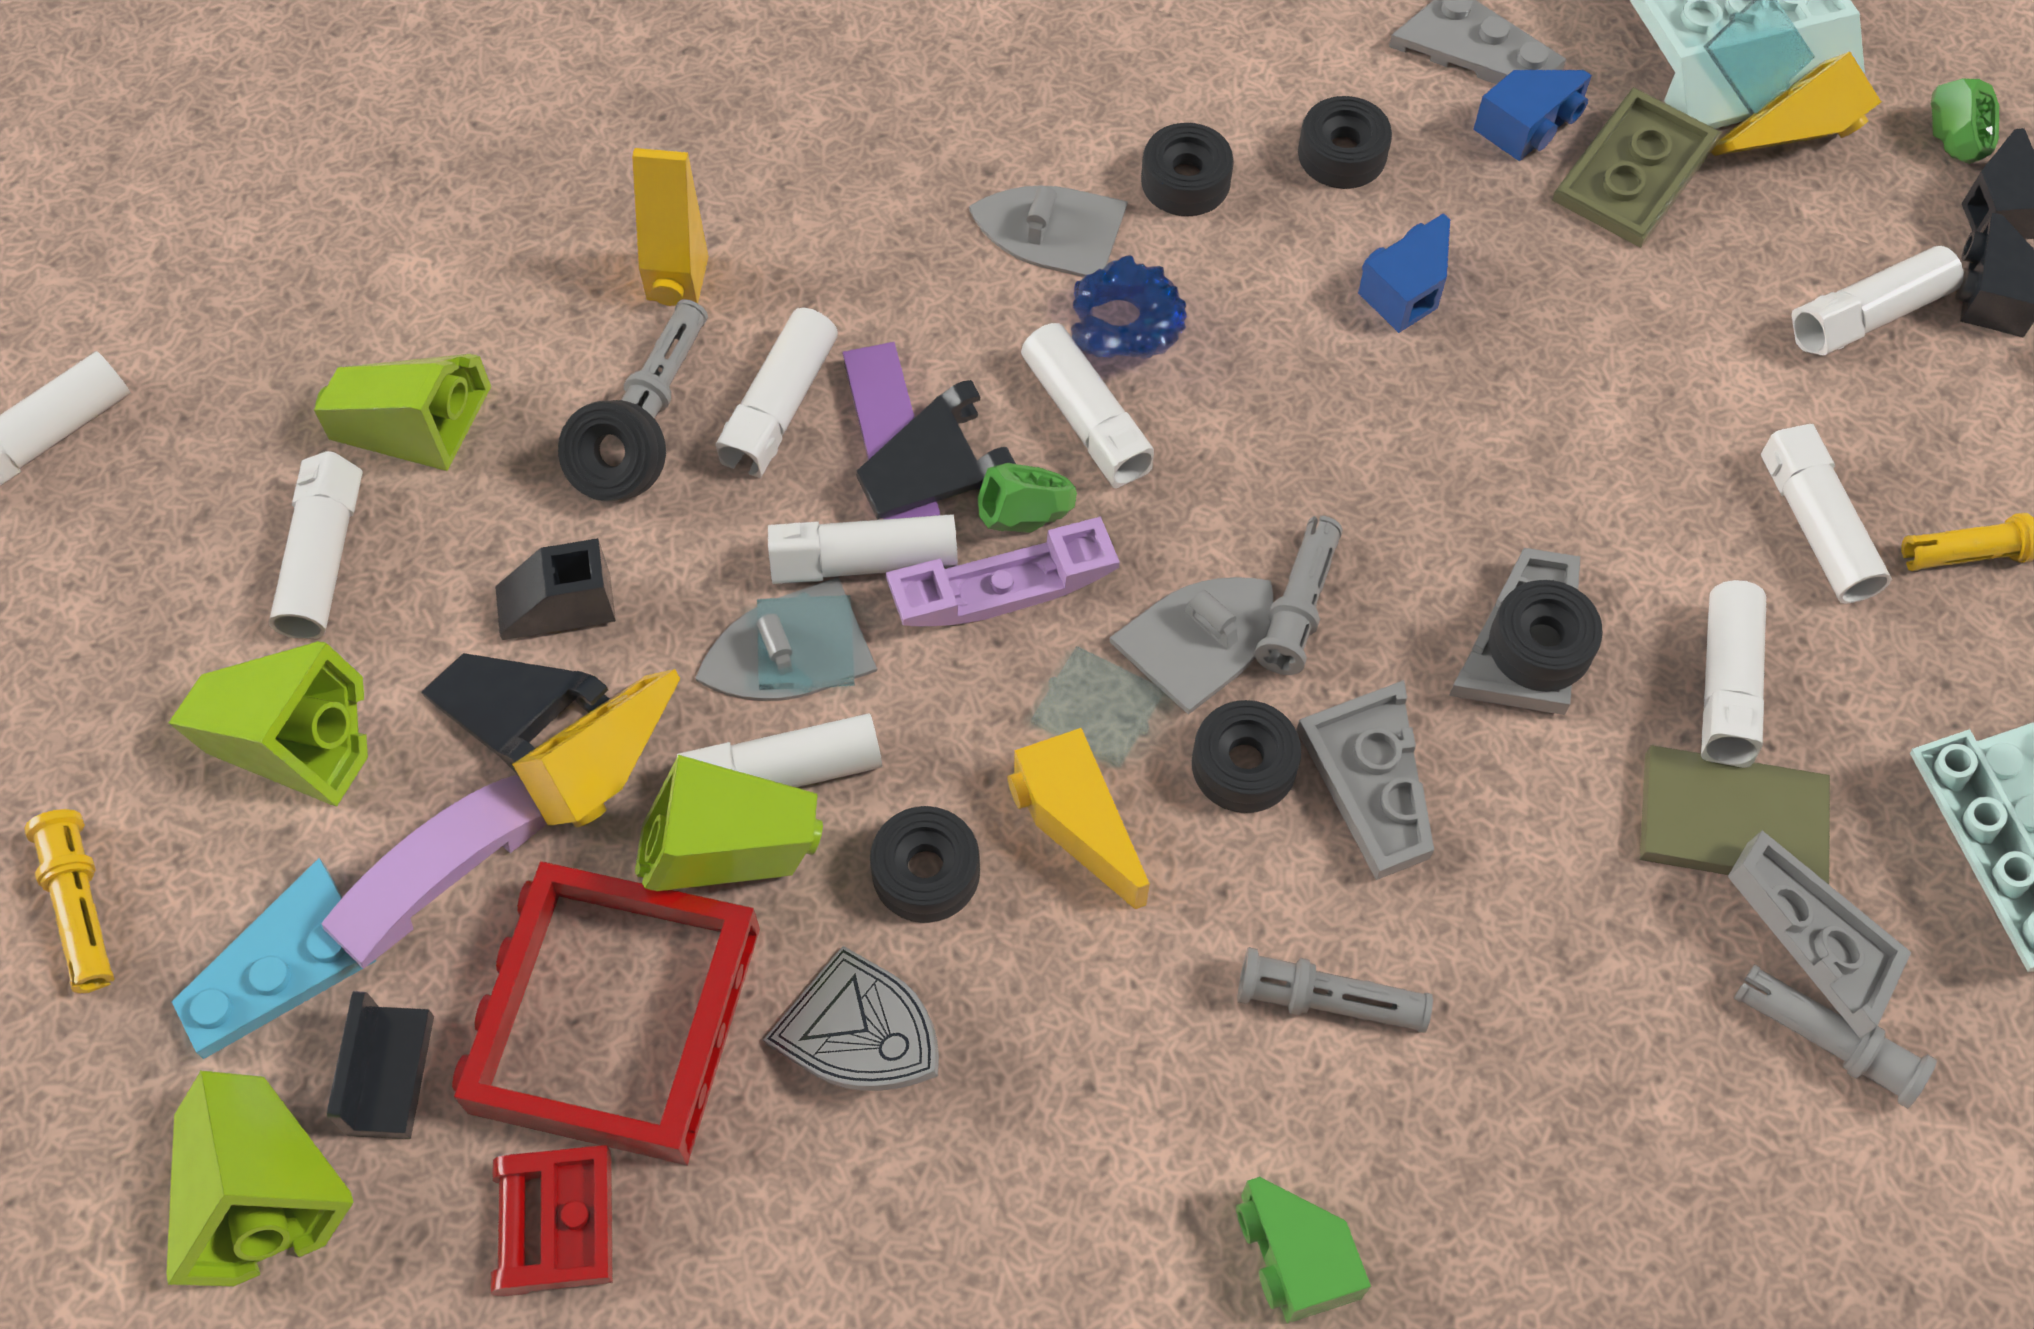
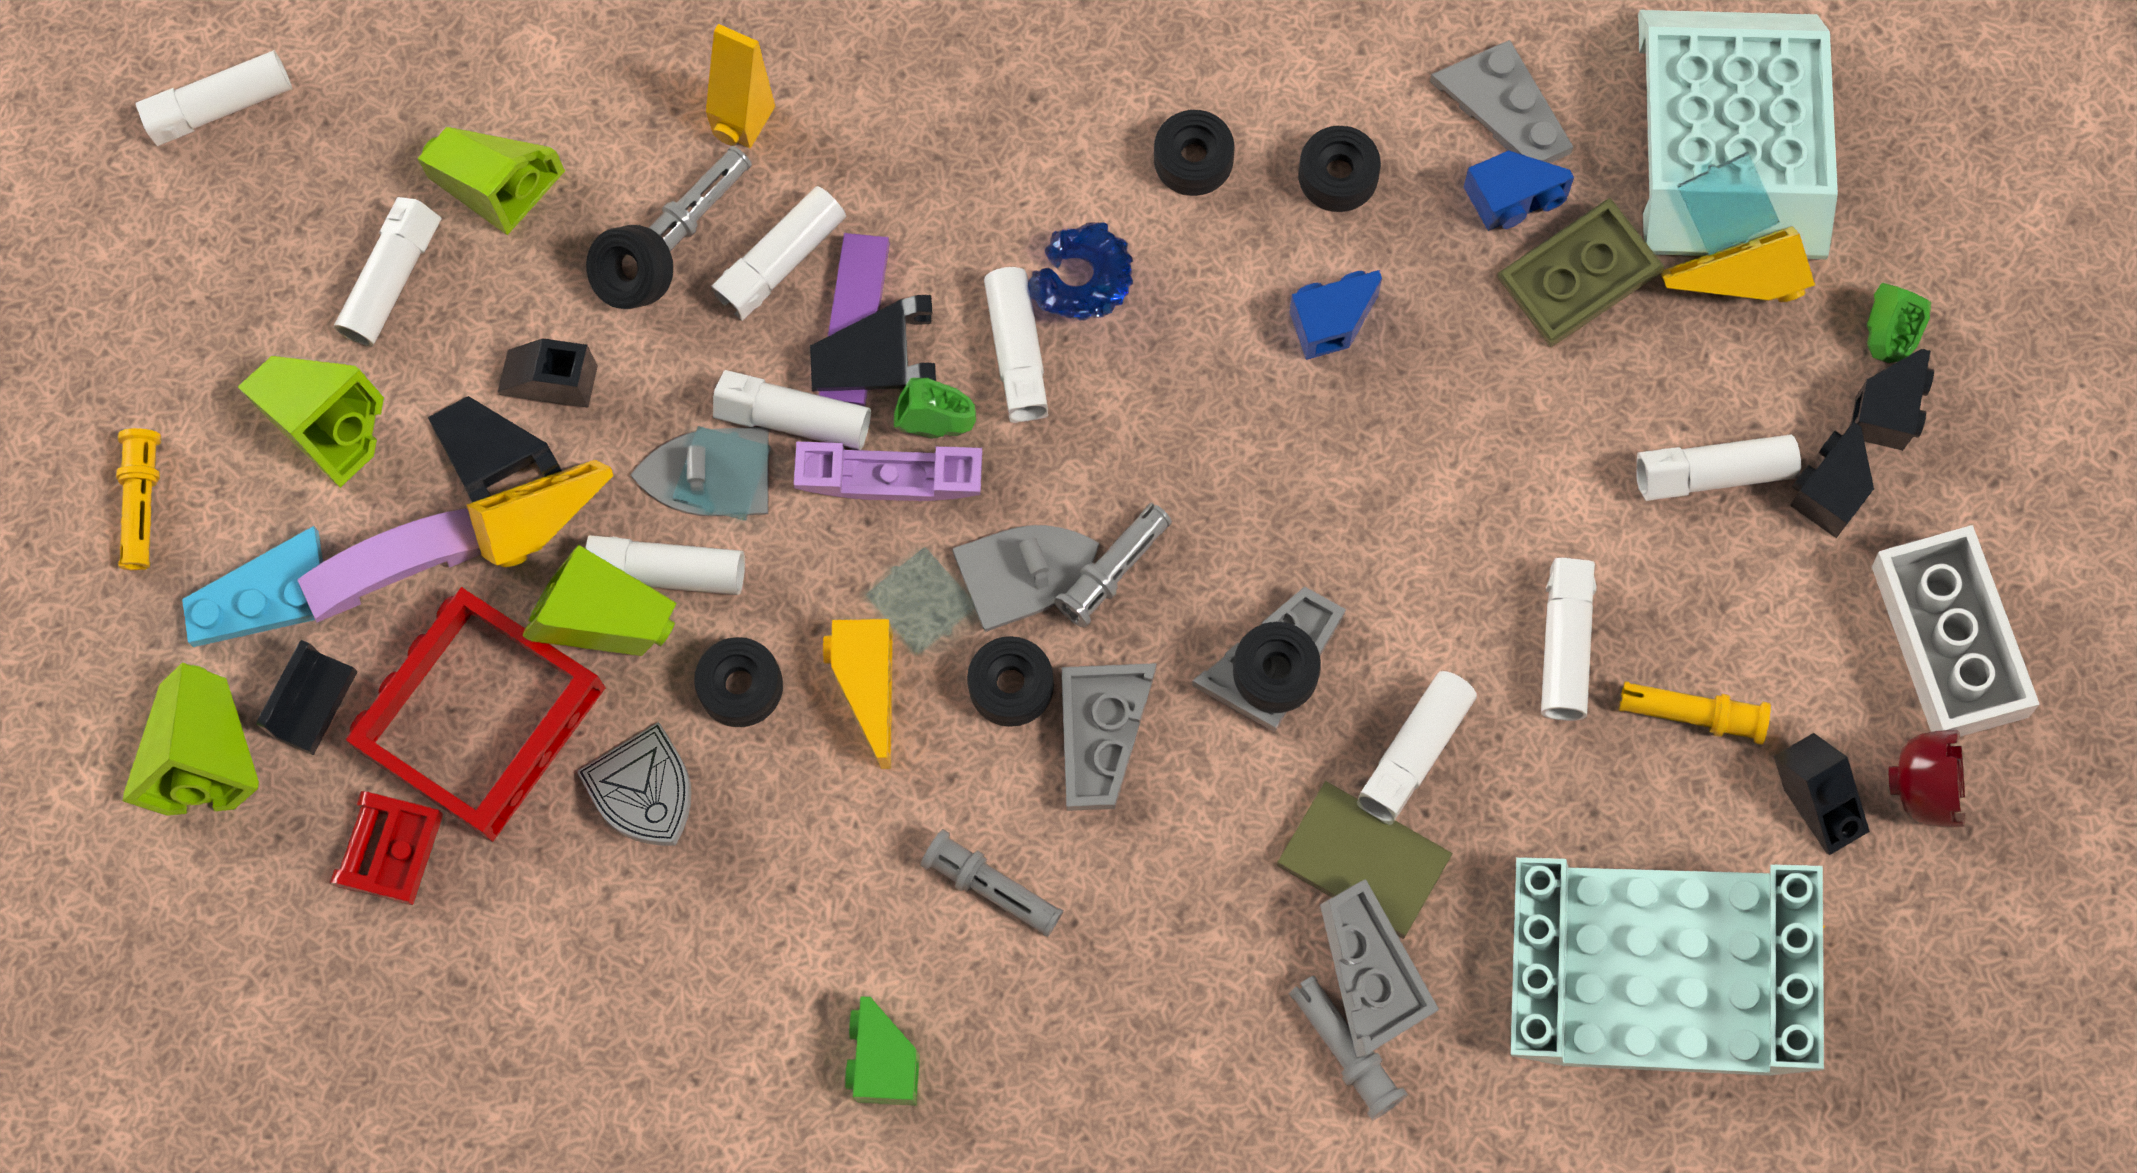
camera: 25 degrees right, 10 degrees up
(1052, 226) = (1064, 168): light grey shield -> none

